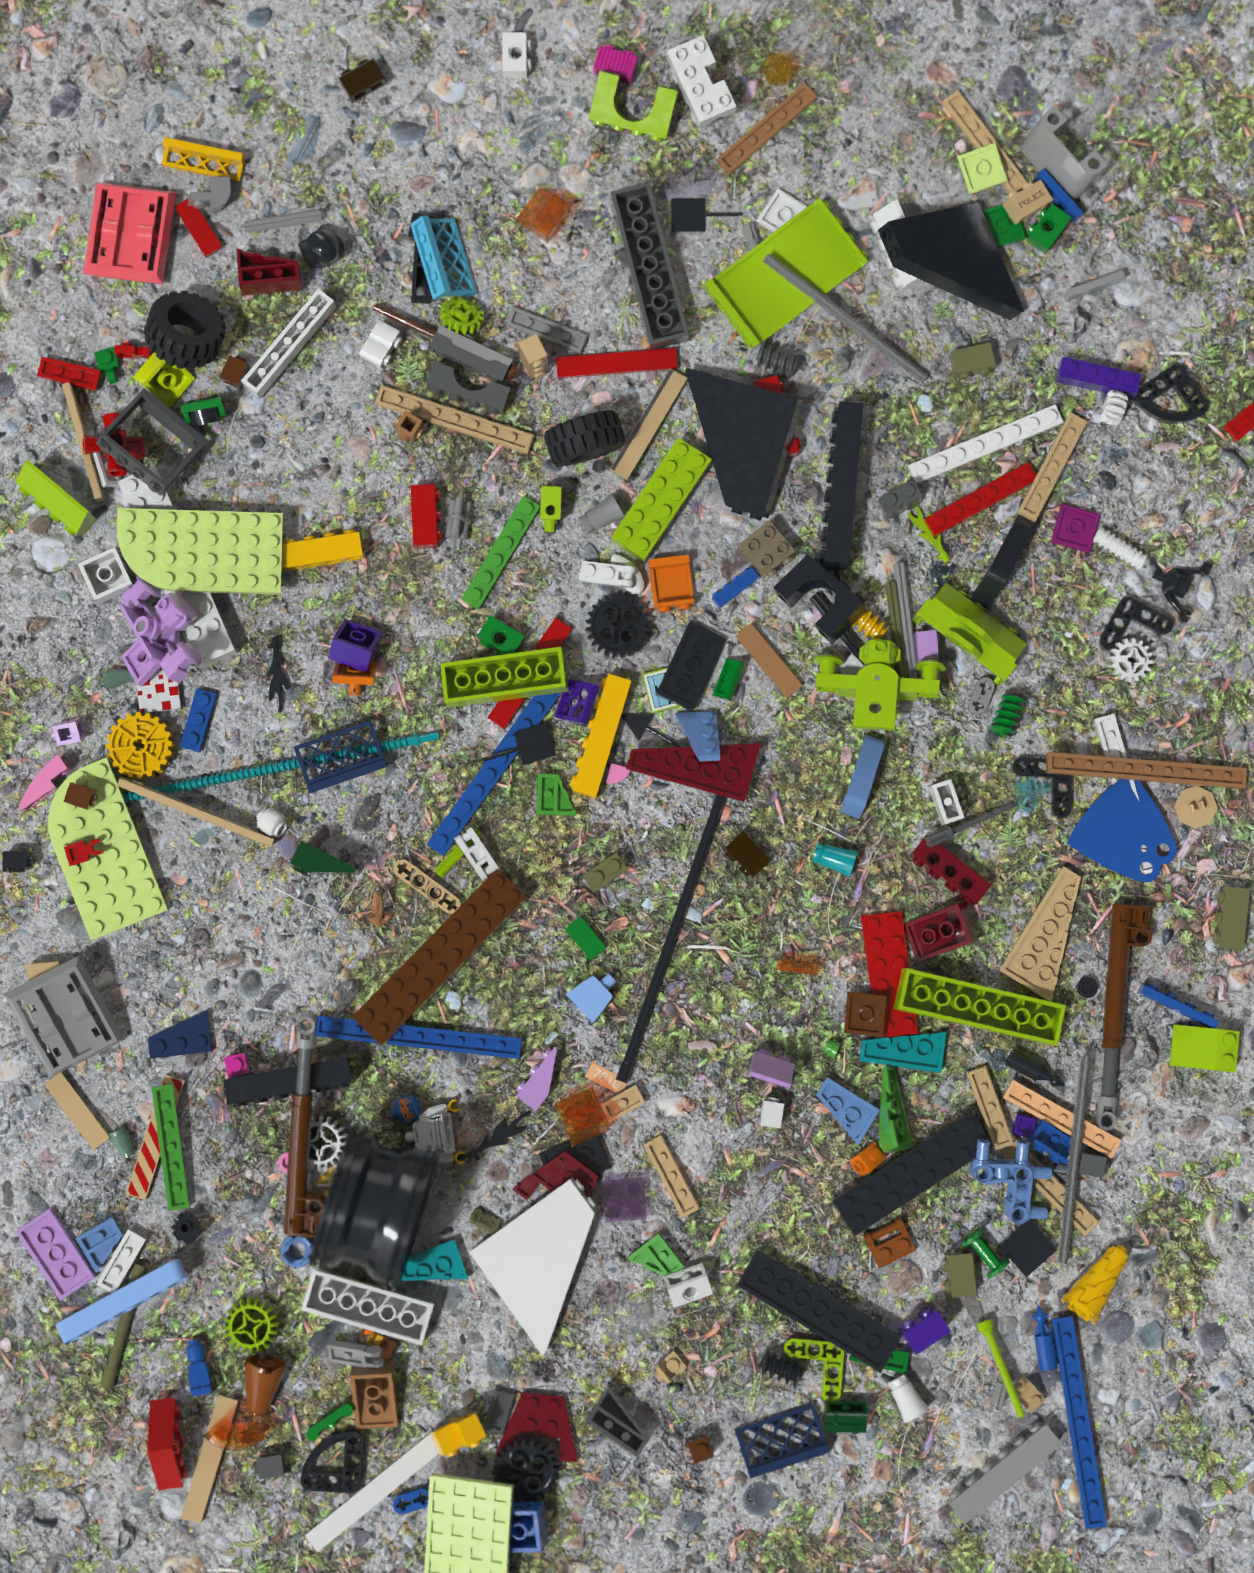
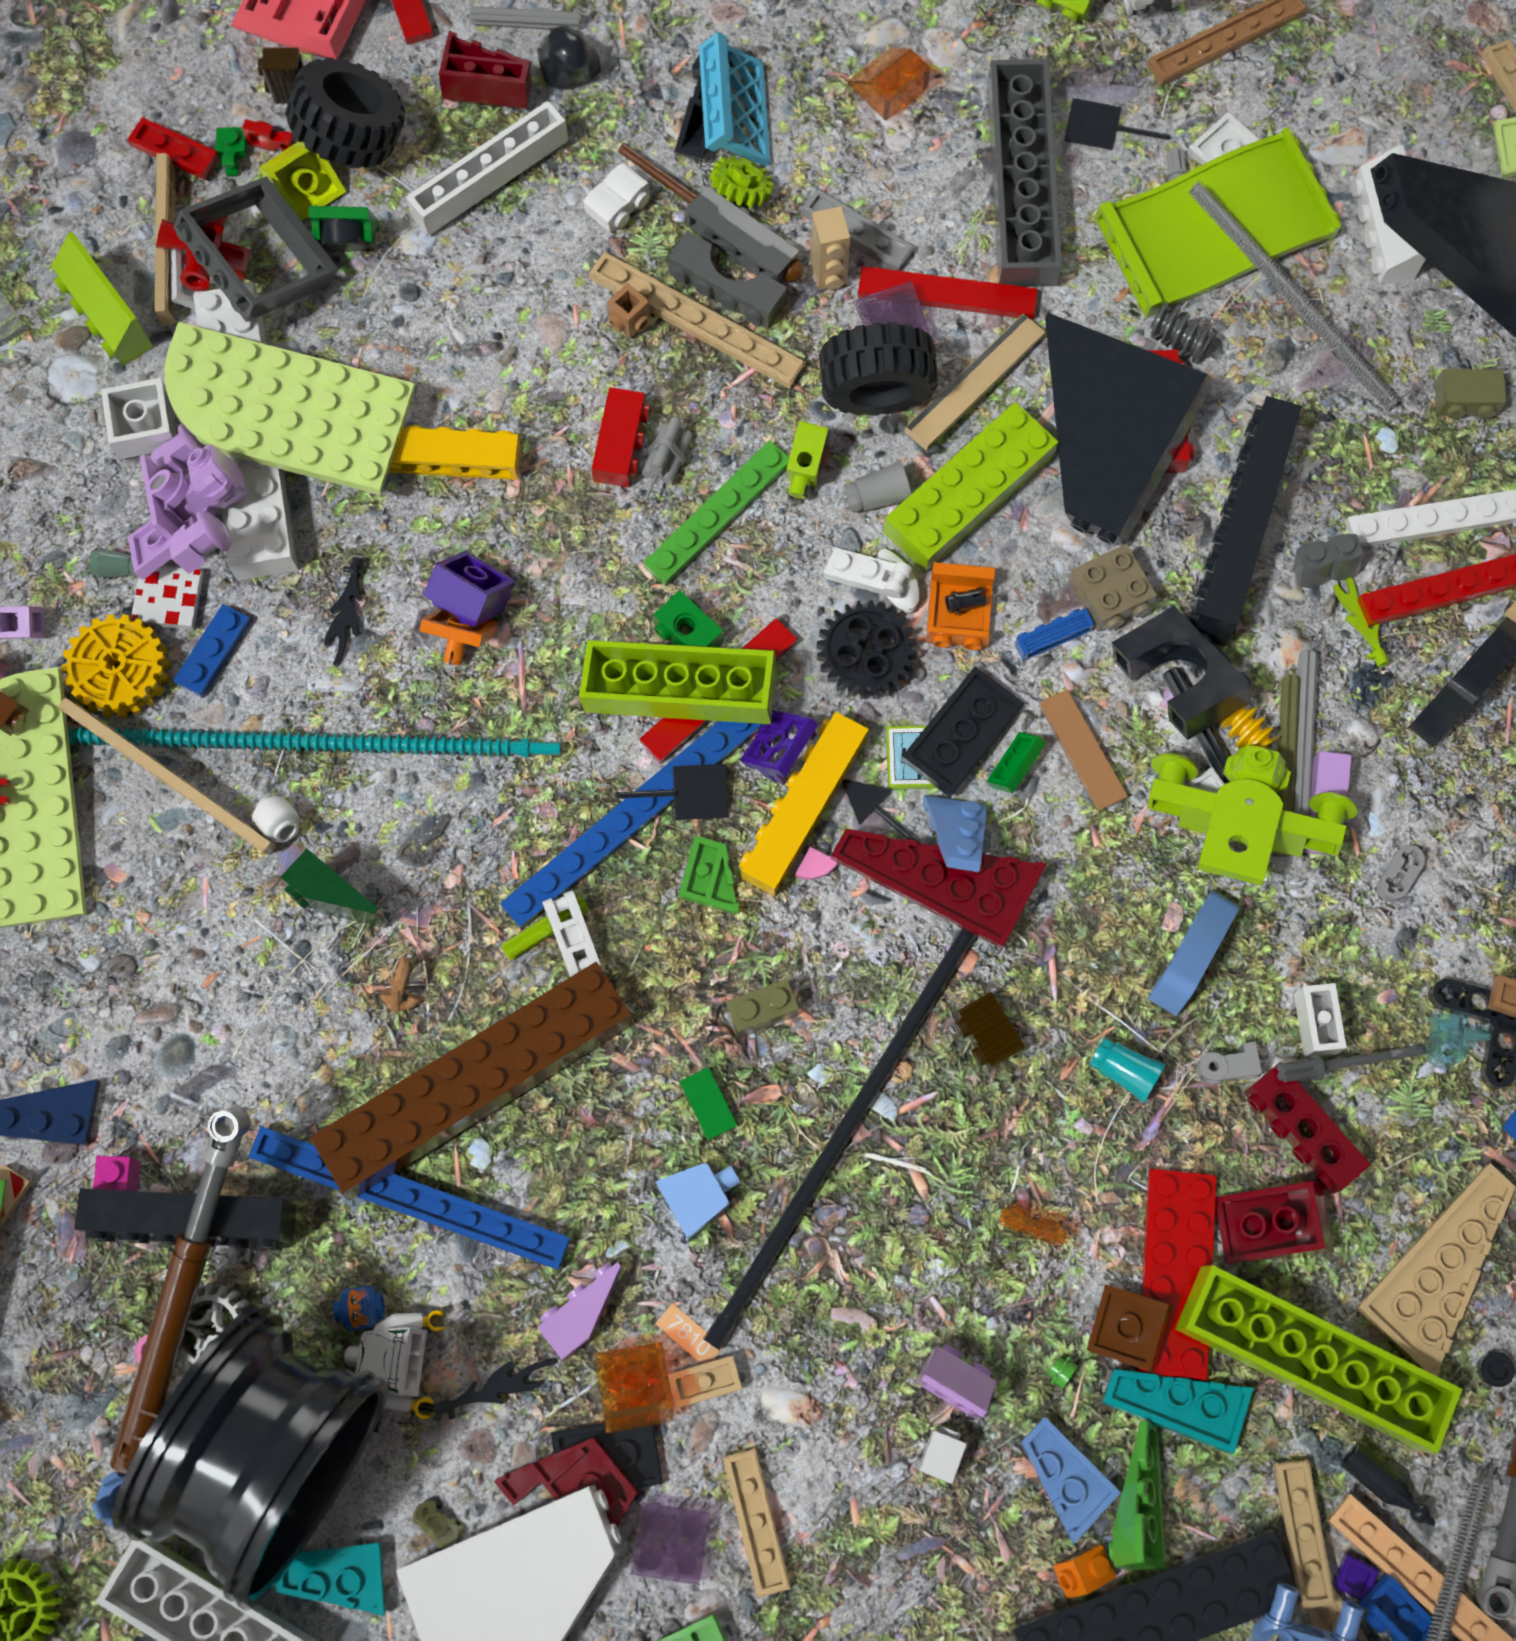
camera: 20 degrees right, 10 degrees down
(132, 306) = (280, 70): none -> dark brown brick
(235, 371) = (397, 187): reddish brown brick -> none
(347, 773) = (408, 772): dark blue fence -> none
(428, 885) = (485, 968): tan beam -> none
(585, 392) = (892, 305): none -> clear purple plate
(673, 579) = (965, 600): none -> black pin
(898, 843) = (1218, 1069): none -> light grey leg
(973, 631) = (1408, 767): lime piece -> none
(1006, 715) = (1437, 908): green piece -> none

